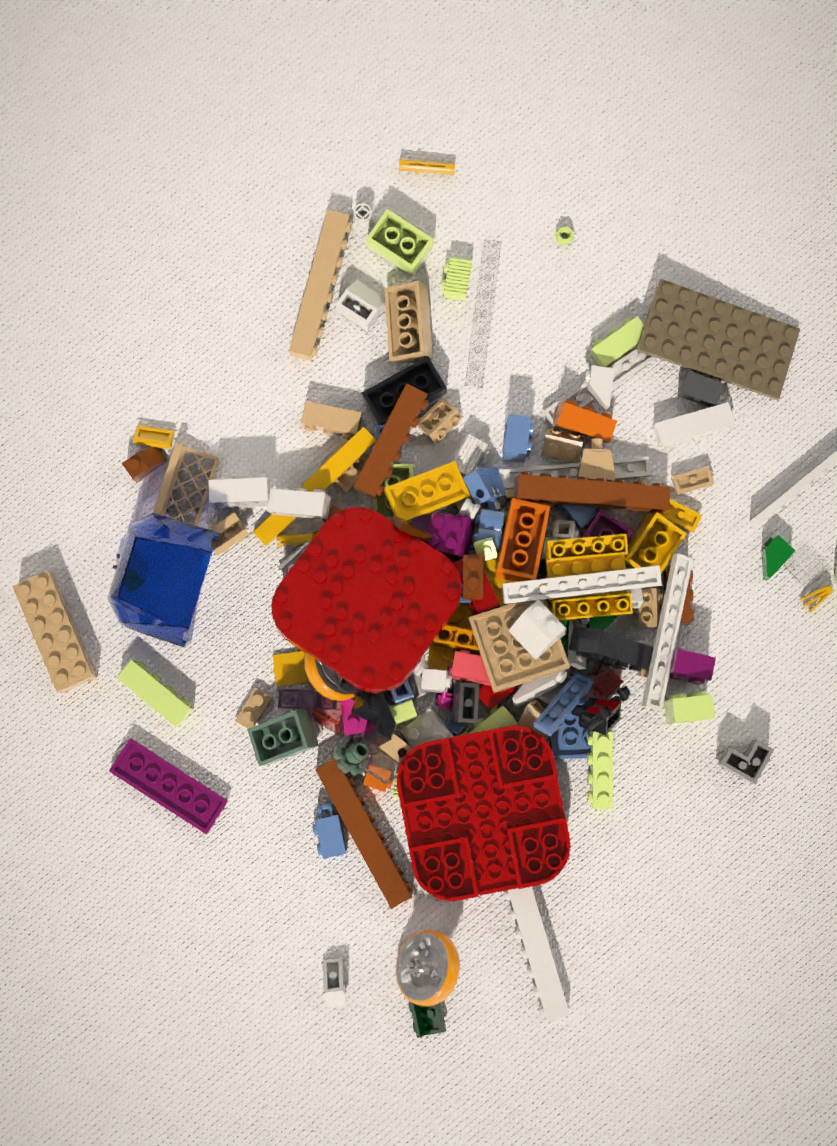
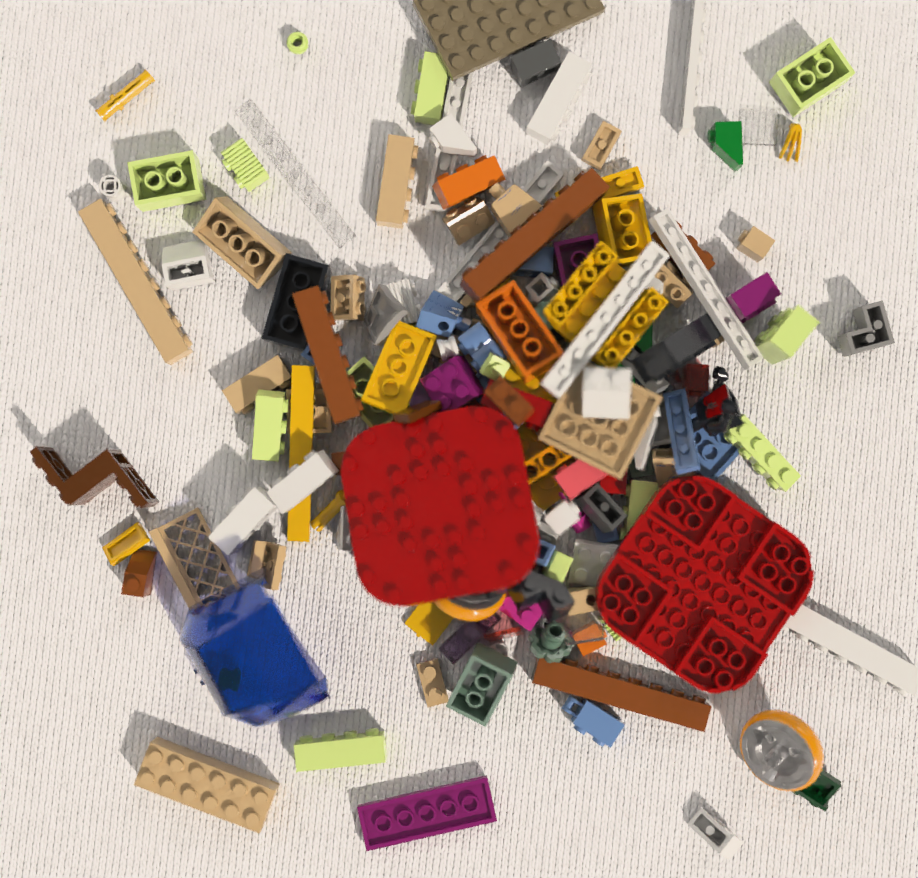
camera: 50 degrees left, 5 degrees up
(176, 377) = (93, 477): none -> reddish brown bracket
(313, 450) = (269, 425): none -> yellowish green brick
(450, 451) = (383, 314): none -> light grey plate
(517, 433) = (426, 249): medium blue brick -> none
(540, 378) = (396, 181): none -> tan brick
(729, 636) = (755, 243): none -> tan brick

